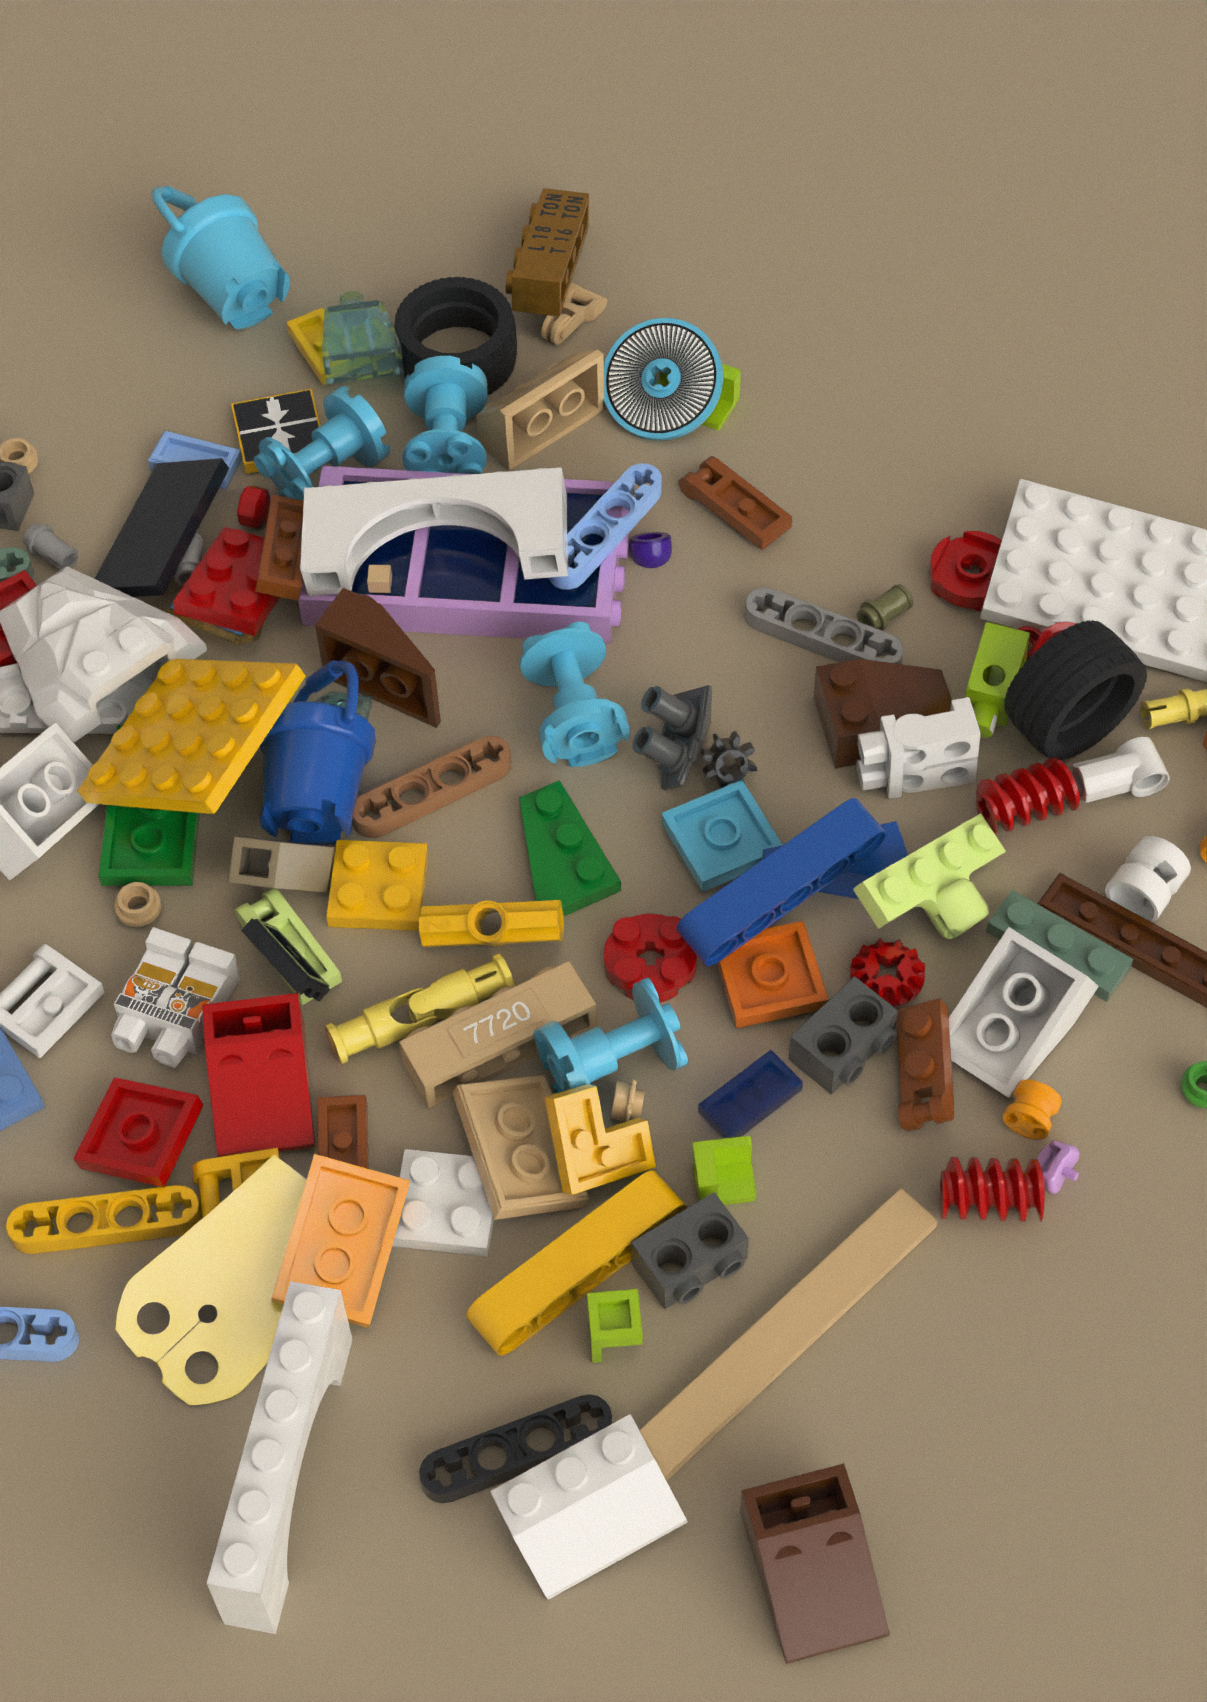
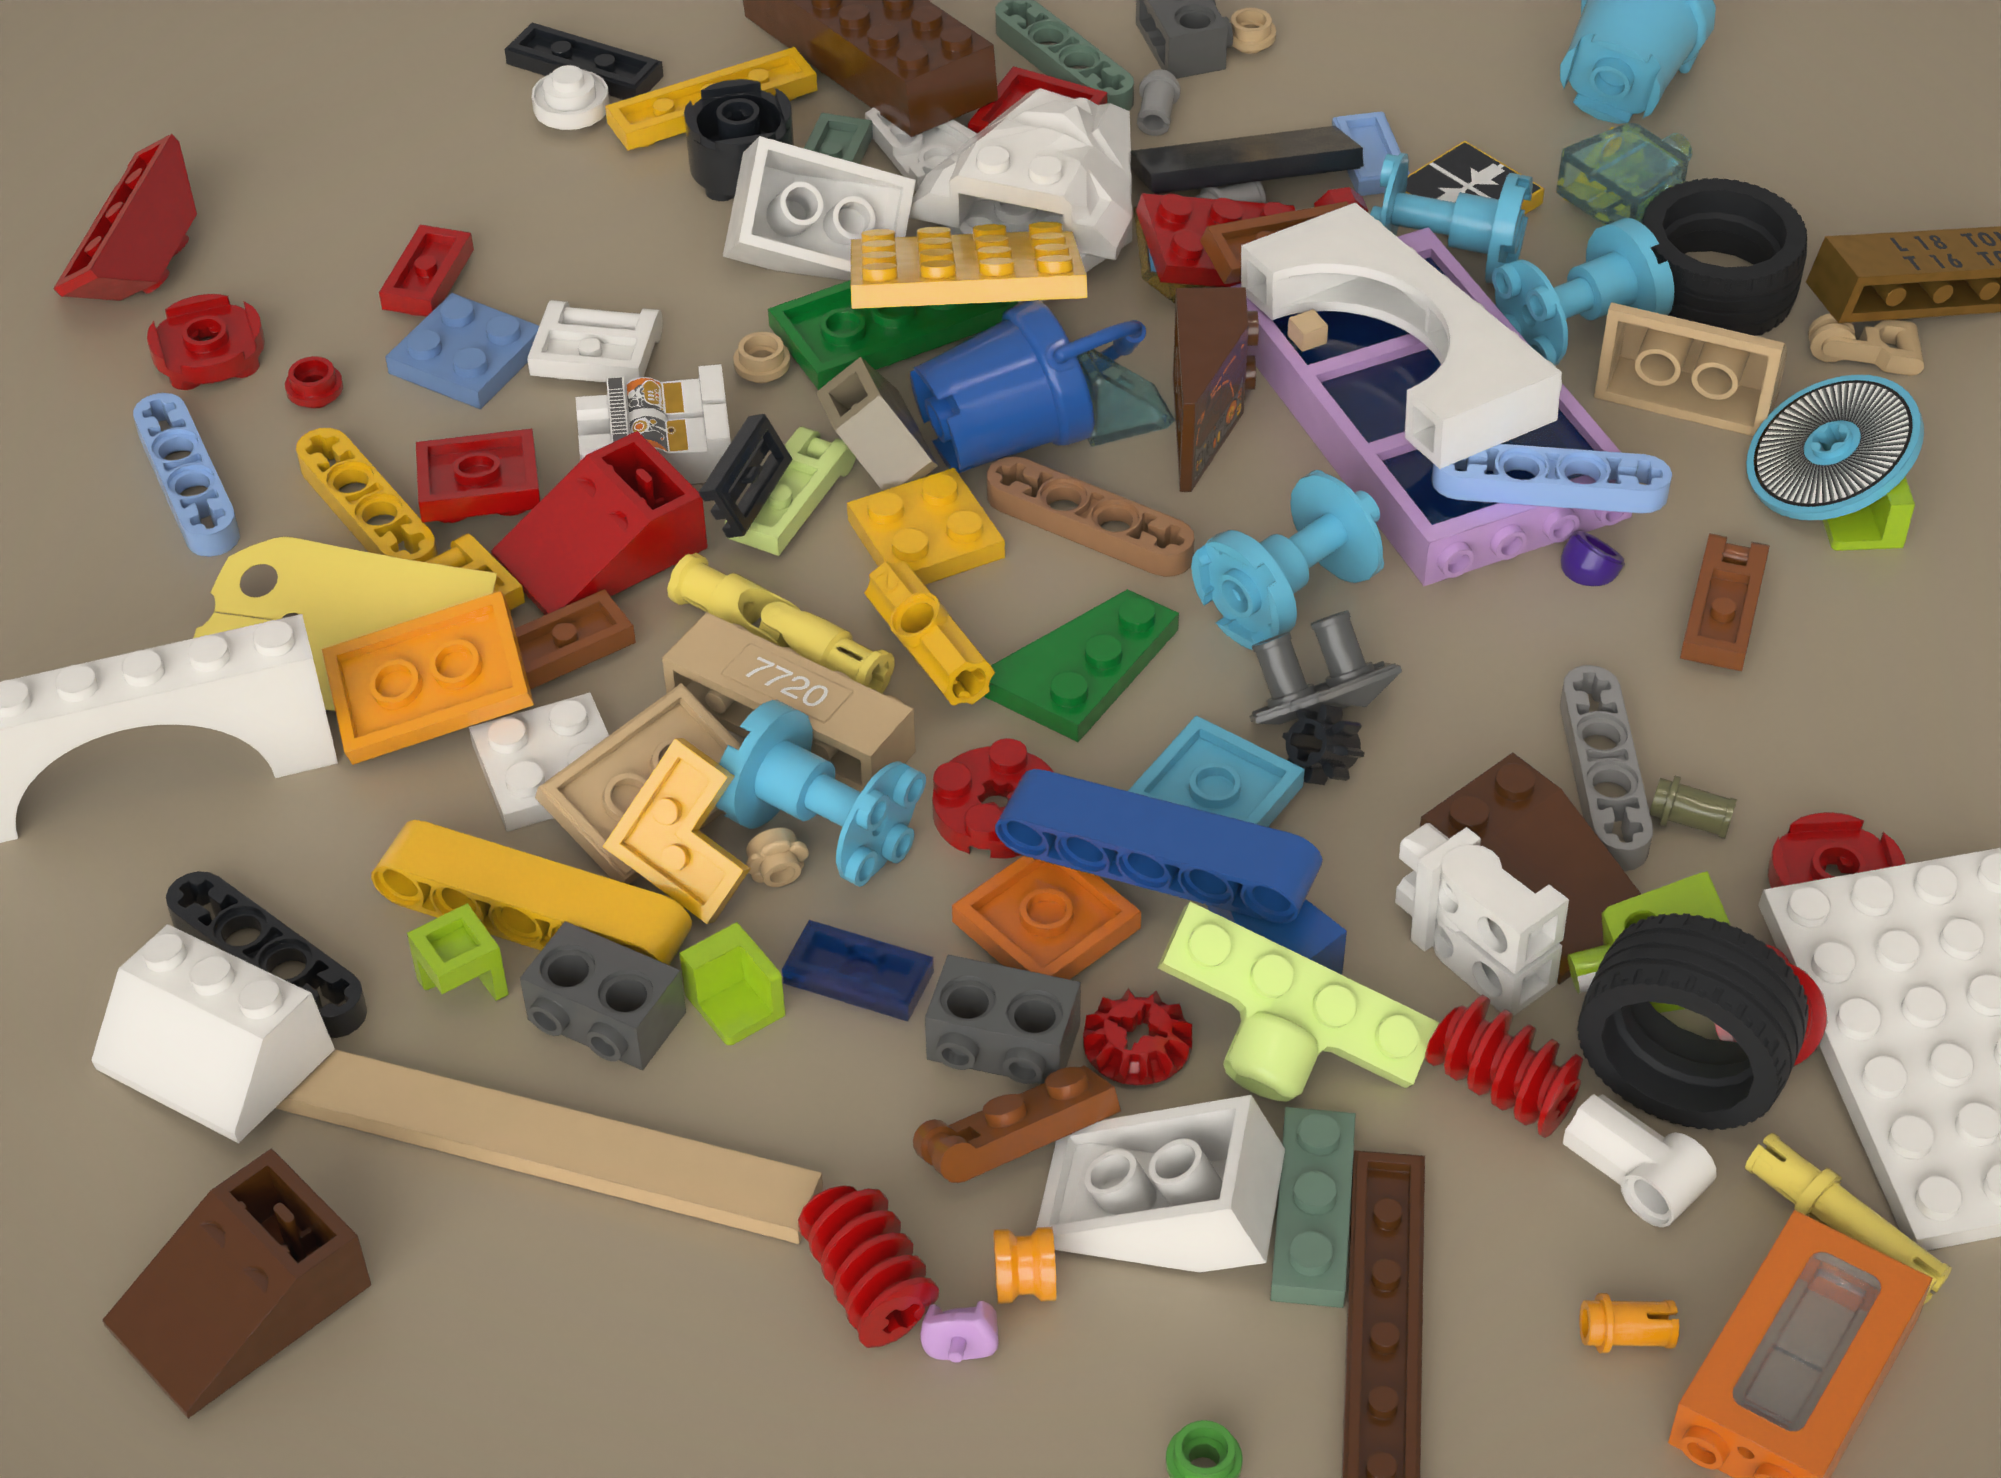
camera: 60 degrees right, 10 degrees down
(1149, 877) = (1452, 1251): white wheel -> none

